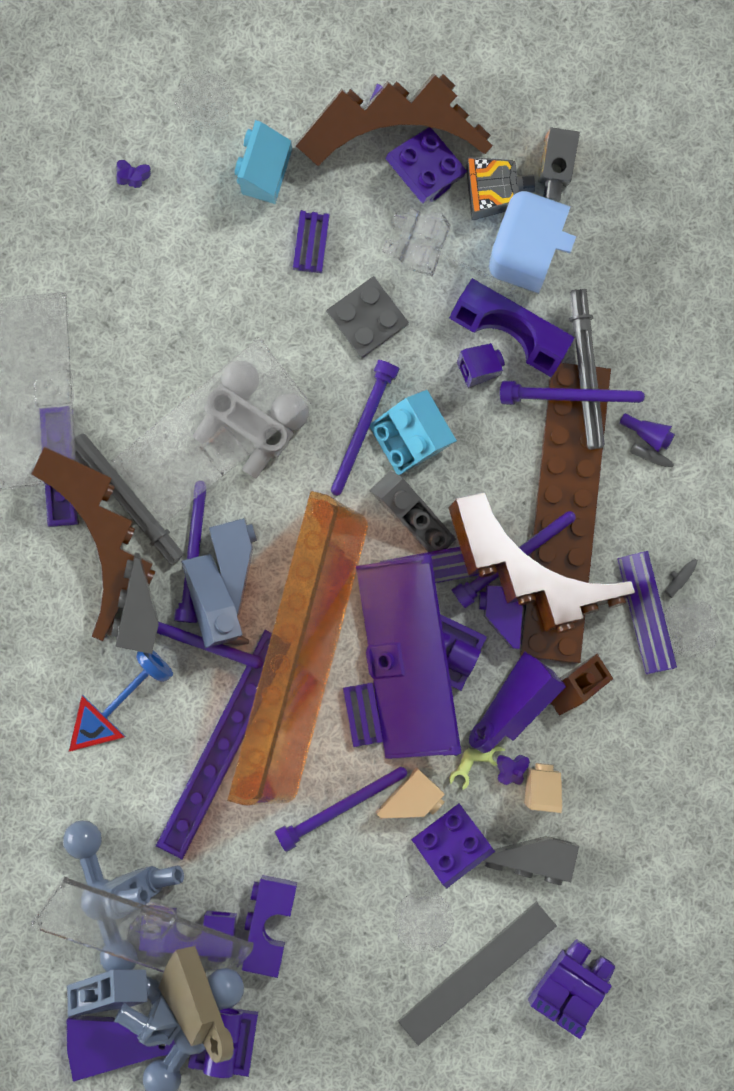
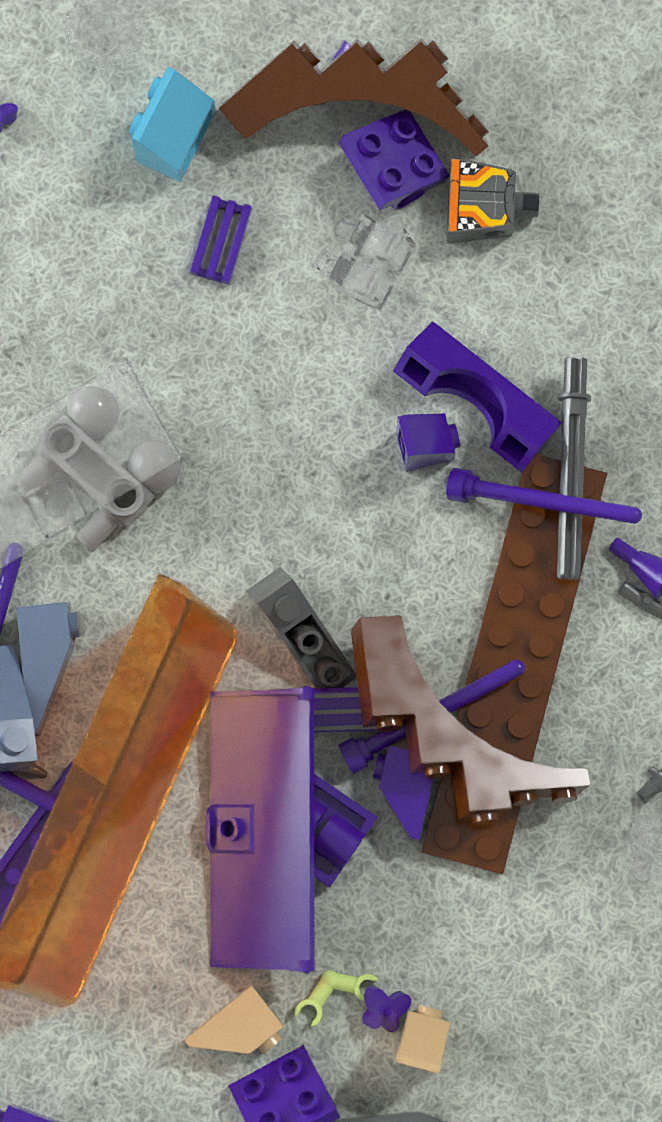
camera: 15 degrees right, 5 degrees down
(291, 835) = (61, 1053): dark purple piece -> none
(358, 689) = (189, 936): dark purple tile -> none
(367, 317) = (282, 353): dark grey plate -> none
(384, 375) = (292, 435): dark purple piece -> none
(412, 432) = (318, 519): medium azure slope -> none
(519, 701) = (404, 916): dark purple piece -> none
(529, 239) = (517, 281): light blue piece -> none
(558, 149) = (577, 165): dark grey torso -> none
(581, 684) = (495, 903): reddish brown slope -> none
(647, 613) = (607, 819): dark purple tile -> none

